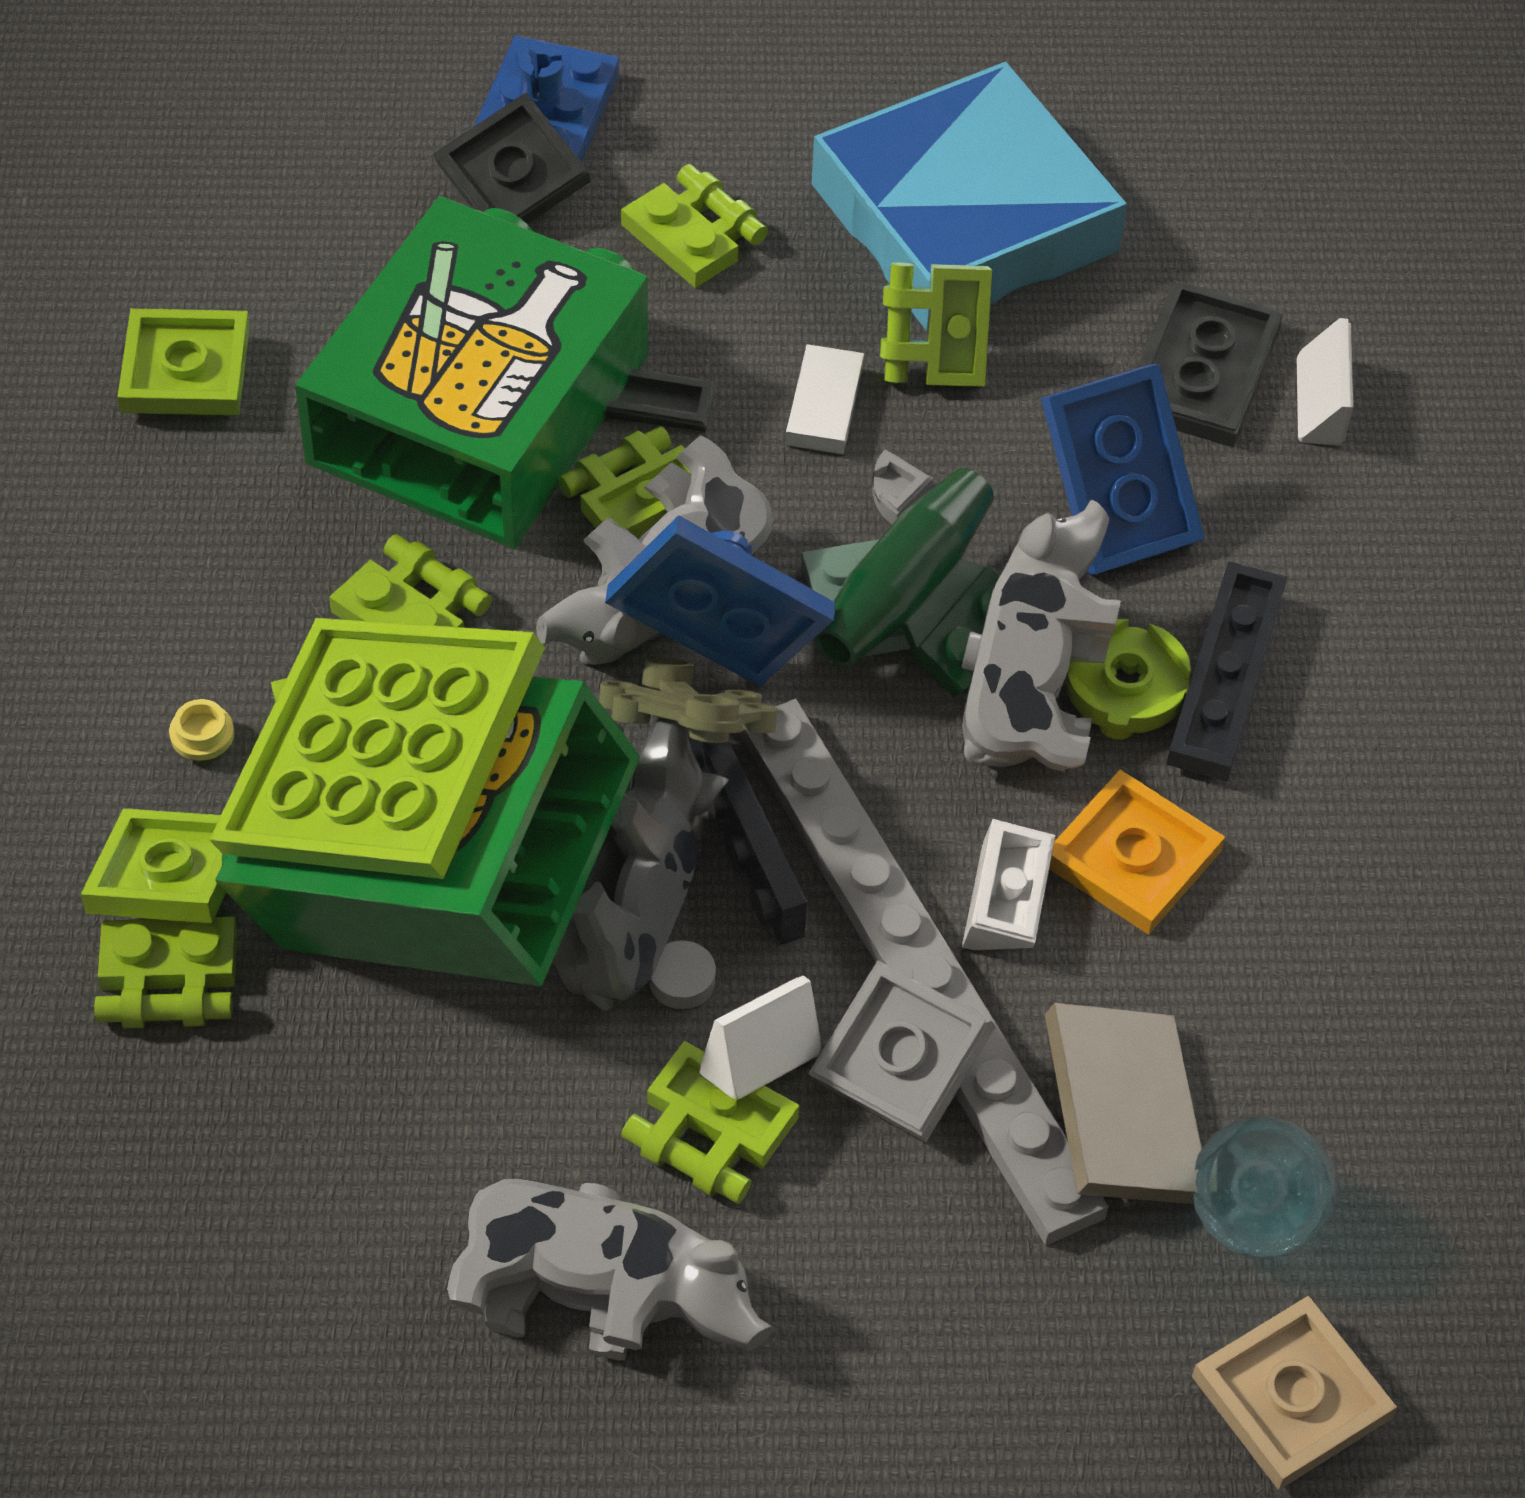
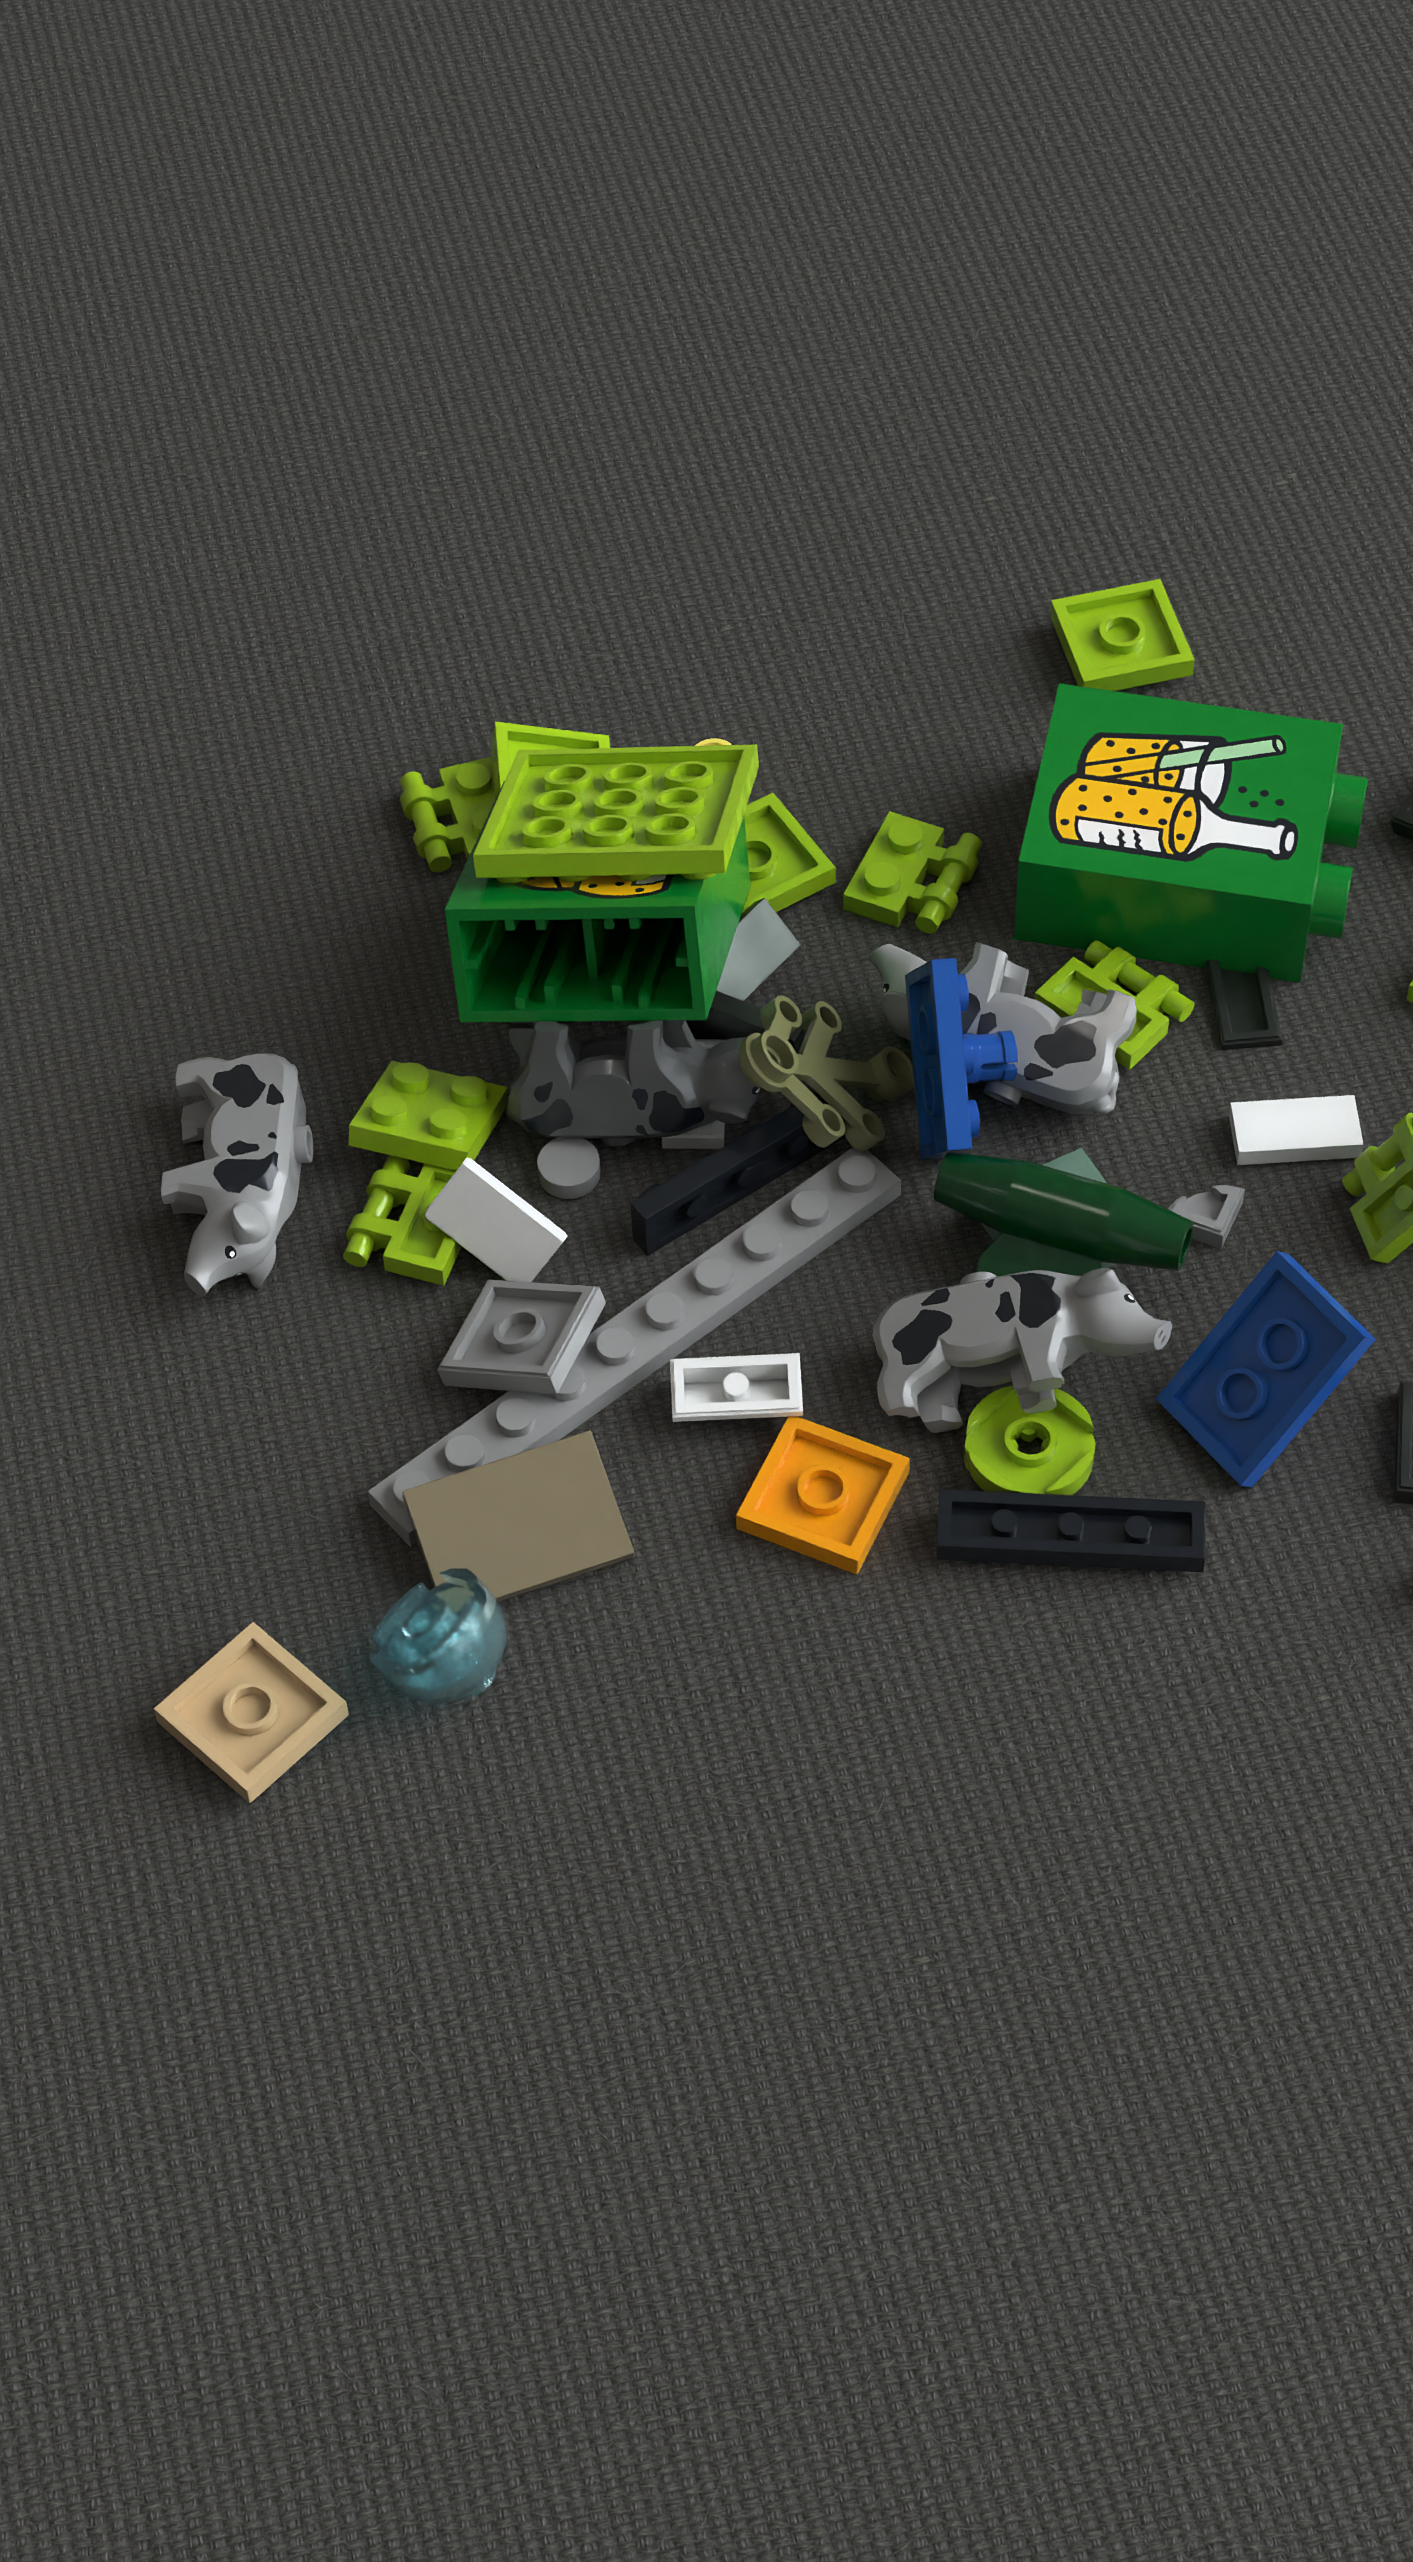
camera: 80 degrees right, 0 degrees up
(587, 1080) = (428, 1115): none -> lime plate

